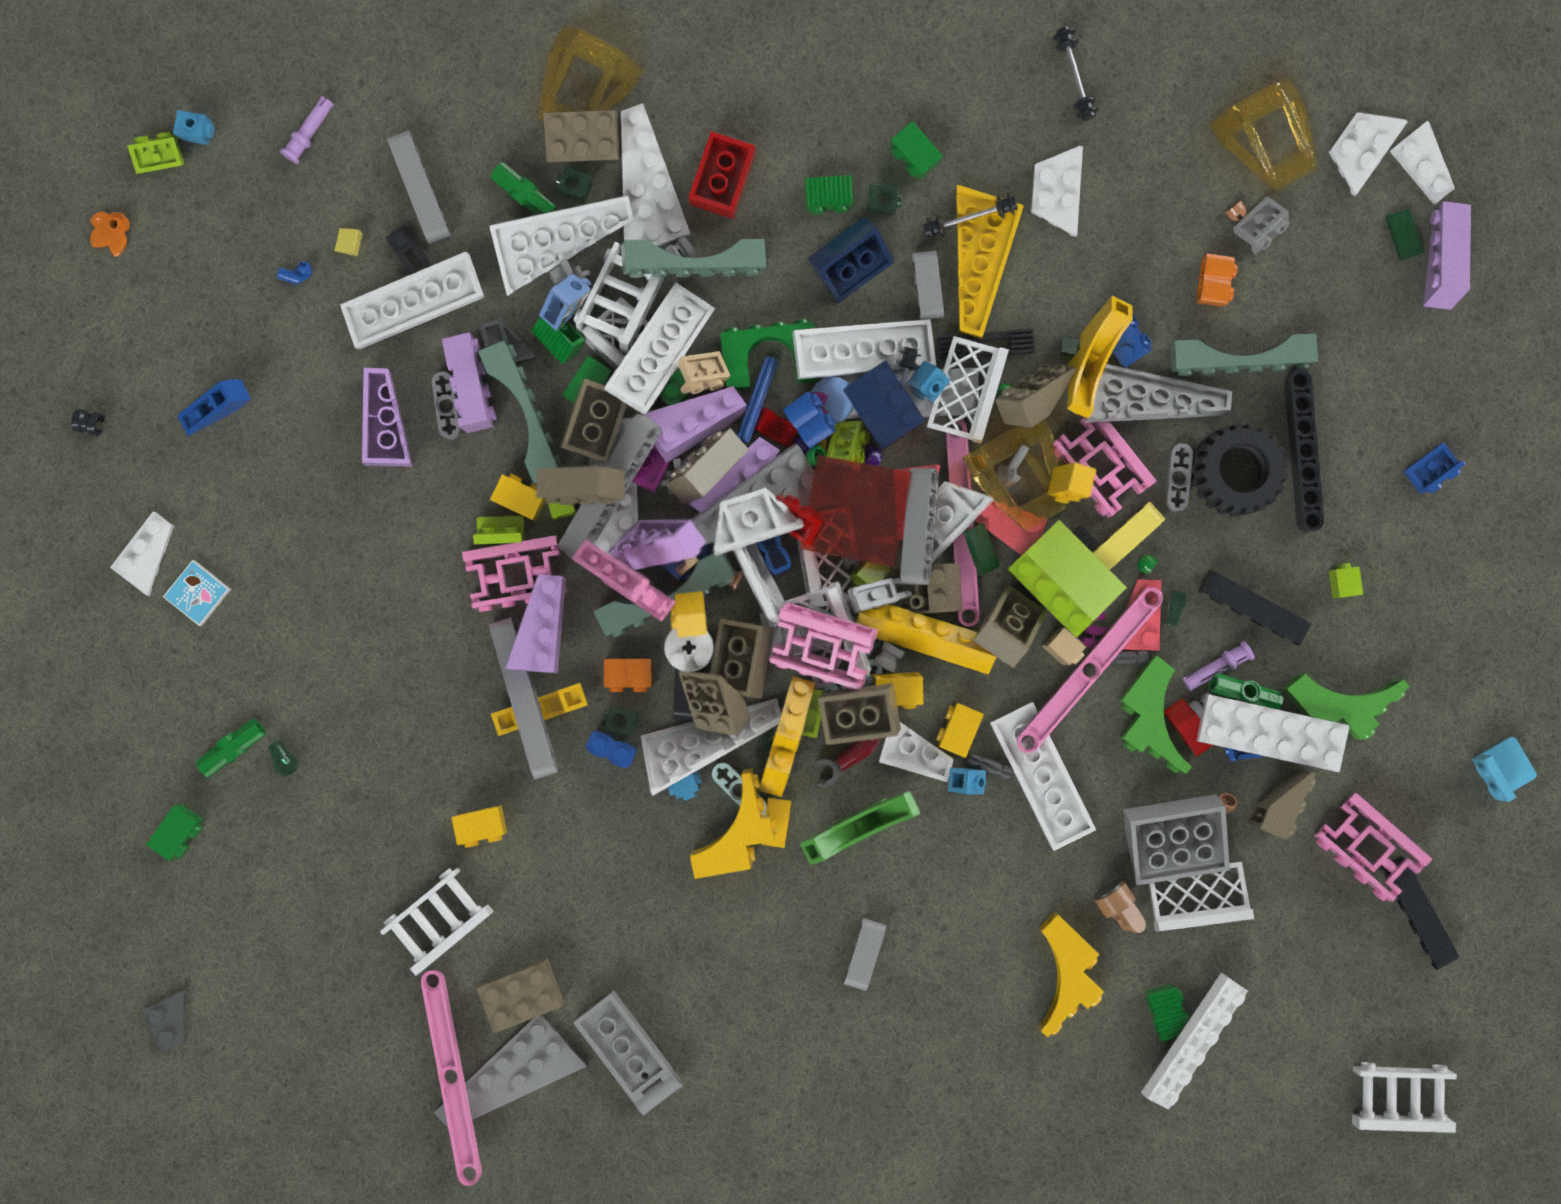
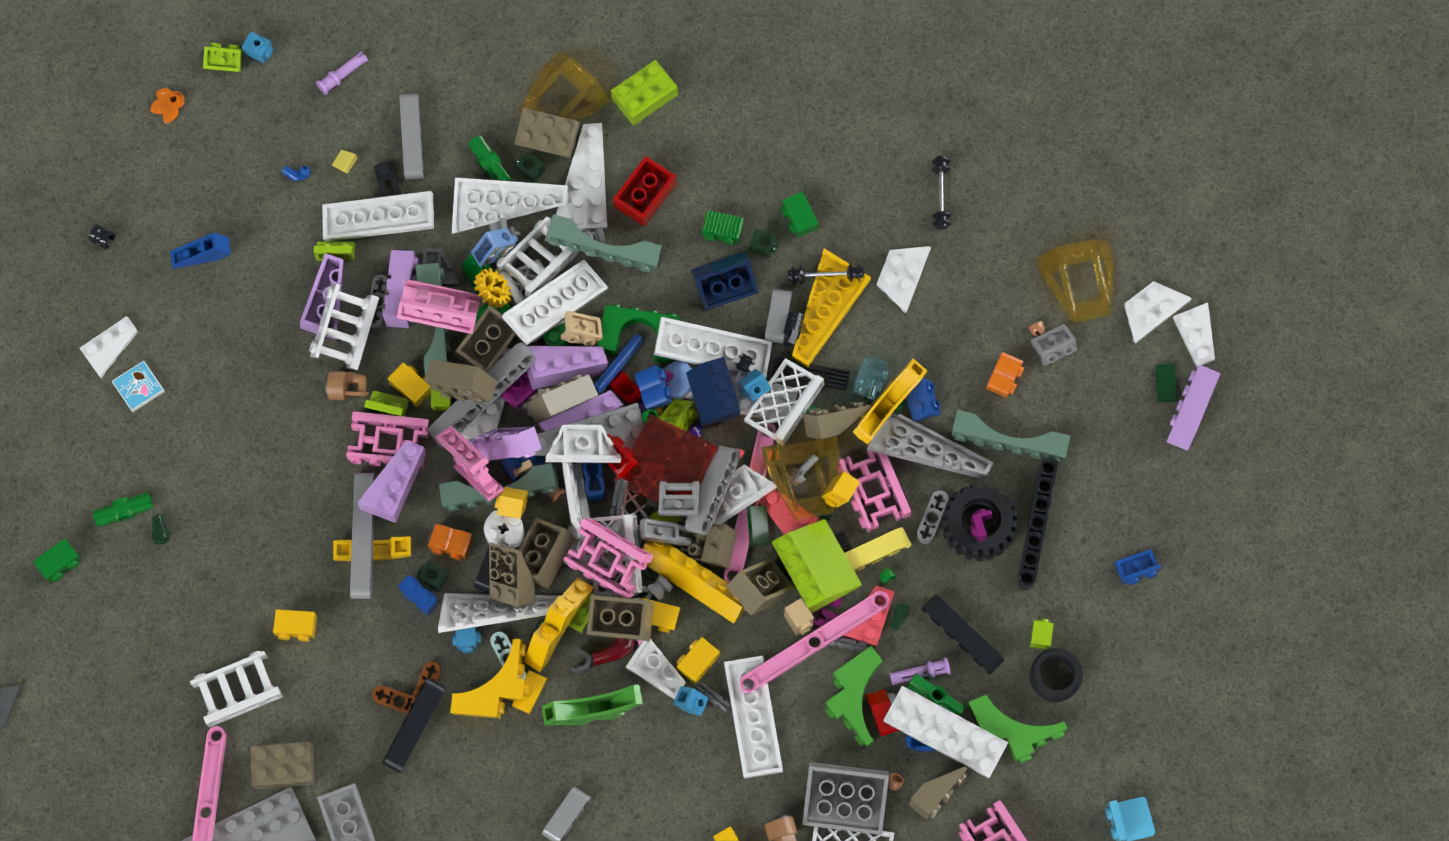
camera: 15 degrees right, 15 degrees down
(376, 356) = (342, 250): none -> lime bracket
(434, 525) = (338, 385): none -> medium nougat piece
(438, 463) = (362, 323): none -> white fence
(505, 412) = (424, 308): none -> bright pink fence
(580, 353) = (493, 288): none -> yellow gear
(649, 865) = (387, 691): none -> dark orange beam
(656, 904) = (413, 725): none -> black beam
(682, 49) = (644, 92): none -> lime brick
(811, 567) = (618, 497): none -> dark grey axle
(886, 558) = (679, 504): none -> light grey plate
(951, 297) = (792, 328): none -> black hinge
(1061, 330) = (870, 377): none -> clear light blue brick
(1247, 480) = (977, 527): none -> magenta bracket
(1353, 634) = (1050, 694): none -> black tyre

